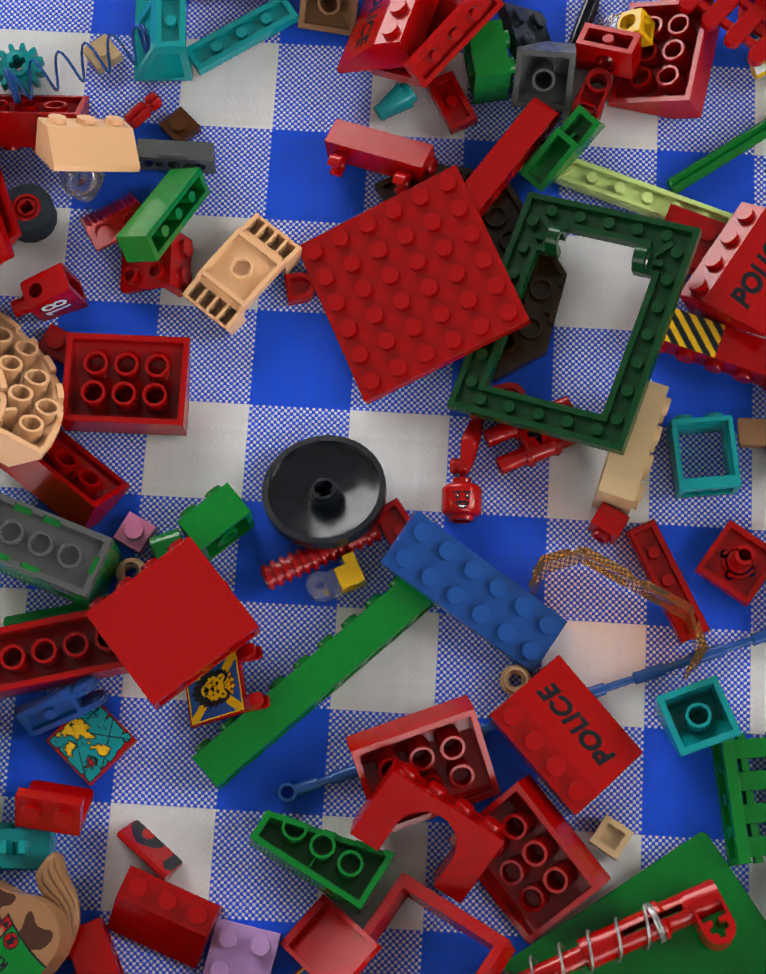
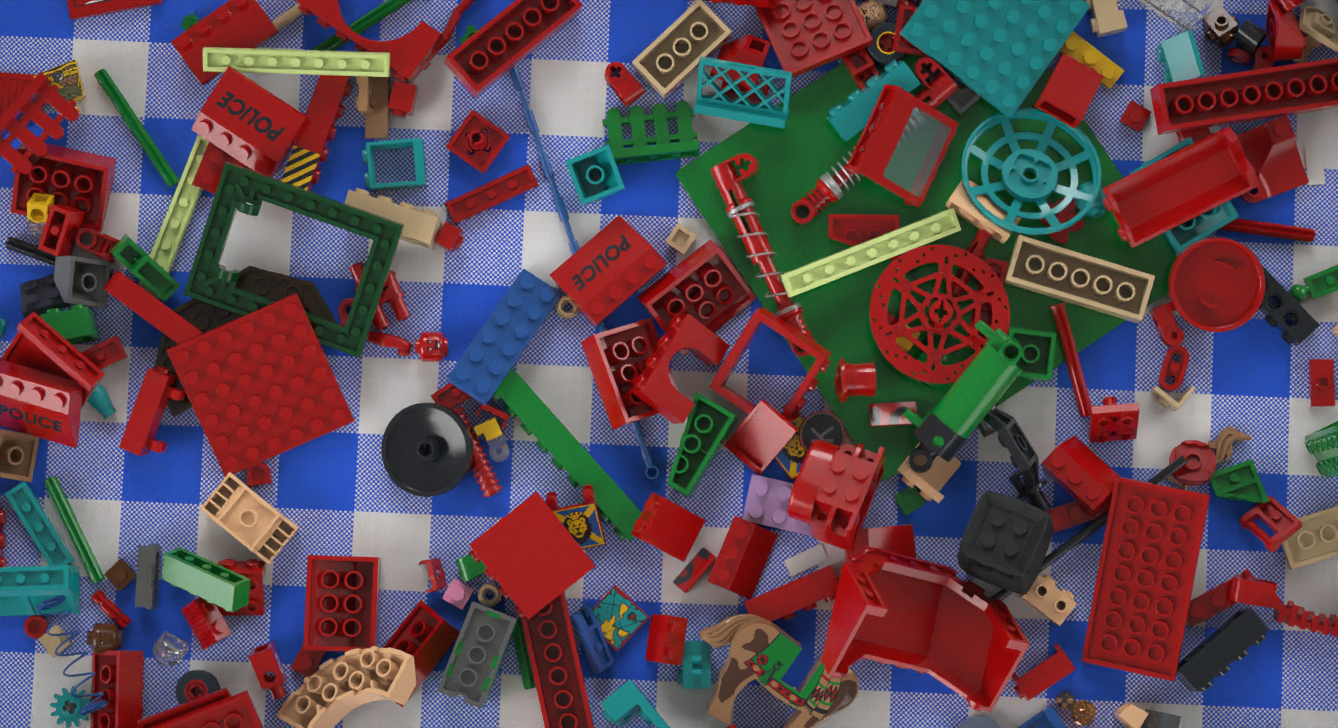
camera: 90 degrees left, 10 degrees up
(87, 144) = (147, 642): light nougat slope -> none
(101, 101) = (104, 638): none -> reddish brown head
(123, 30) = (36, 626): none -> red tile
(172, 496) = (433, 564): none -> red piece
(208, 810) = (667, 527): none -> red brick
(216, 521) = (452, 530): green brick -> none
(237, 74) = (74, 529): none -> green axle
(374, 580) = (495, 411): none -> red piece
(624, 577) = (504, 205): clear orange windscreen -> none

